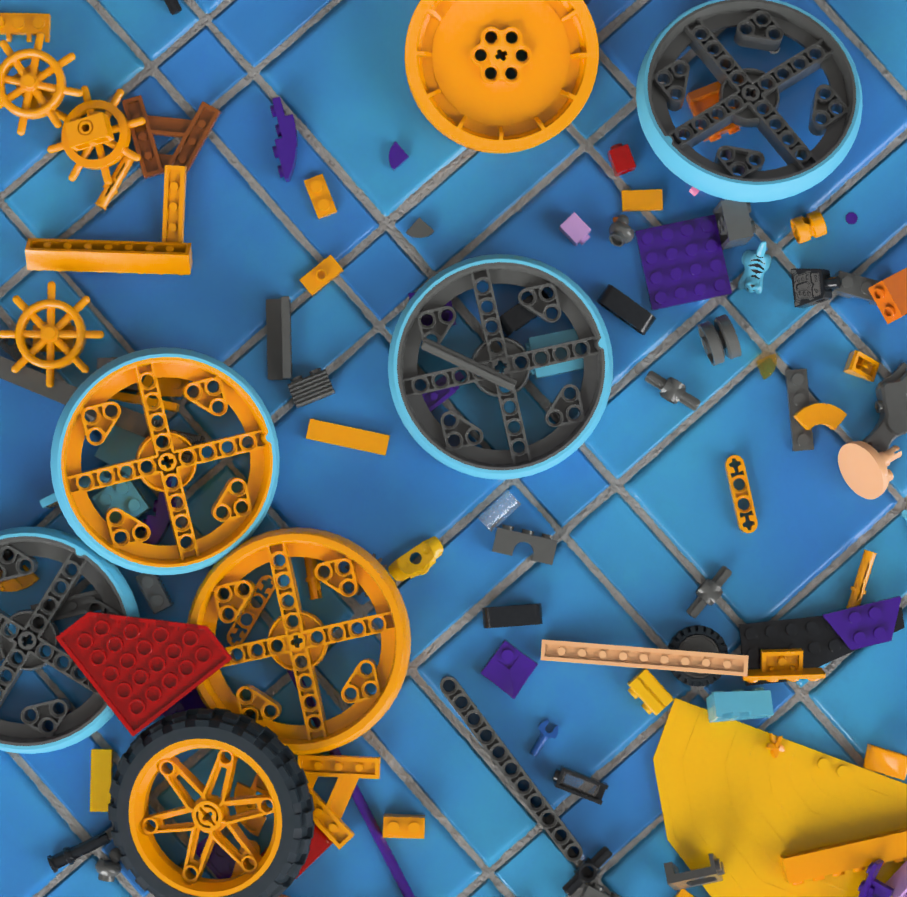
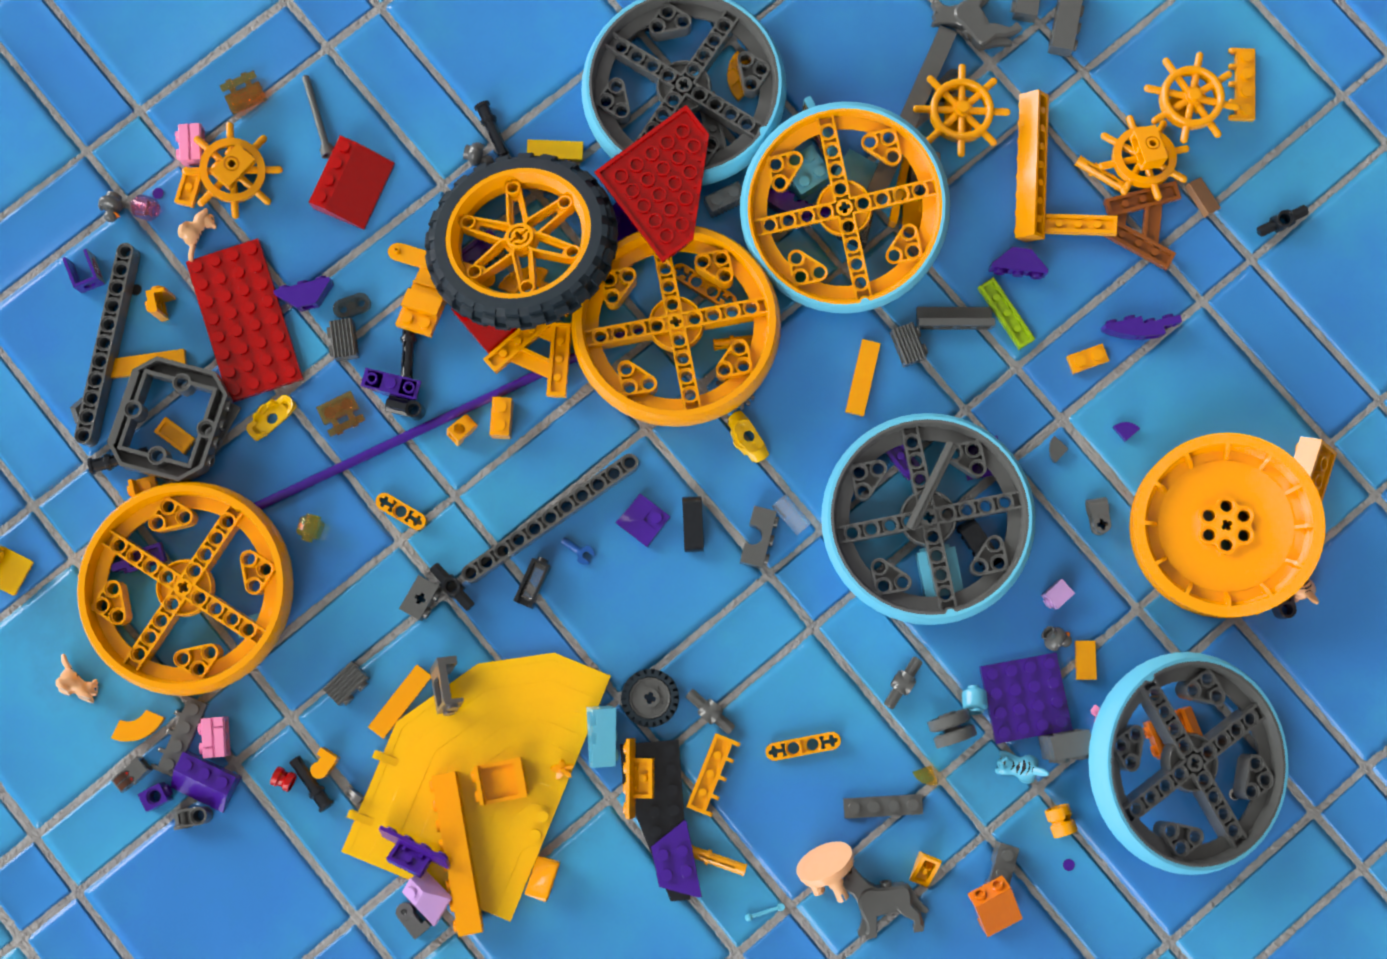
camera: 90 degrees right, 5 degrees down
(138, 71) = (1202, 197): none -> medium nougat slope
(217, 269) = (1019, 263): none -> dark purple slope
(272, 283) = (1006, 313): none -> lime tile
(321, 275) = (1013, 357): light orange plate -> none
(417, 868) = (461, 429): none -> light orange leg
(485, 187) = (1097, 512): none -> dark grey piece
(621, 159) = (1125, 640): red brick -> none
(626, 309) = (980, 641): black beam -> none
(644, 657) = (650, 647): light nougat plate -> none
(650, 691) = (617, 651): yellow brick -> none
(688, 315) = (975, 700): none -> medium azure head
(773, 589) = (711, 773): none -> light orange hinge
(790, 810) = (500, 781): none -> light orange panel
(812, 286) = (1003, 822): torso -> none
(820, 414) = (878, 825): light orange tile -> none

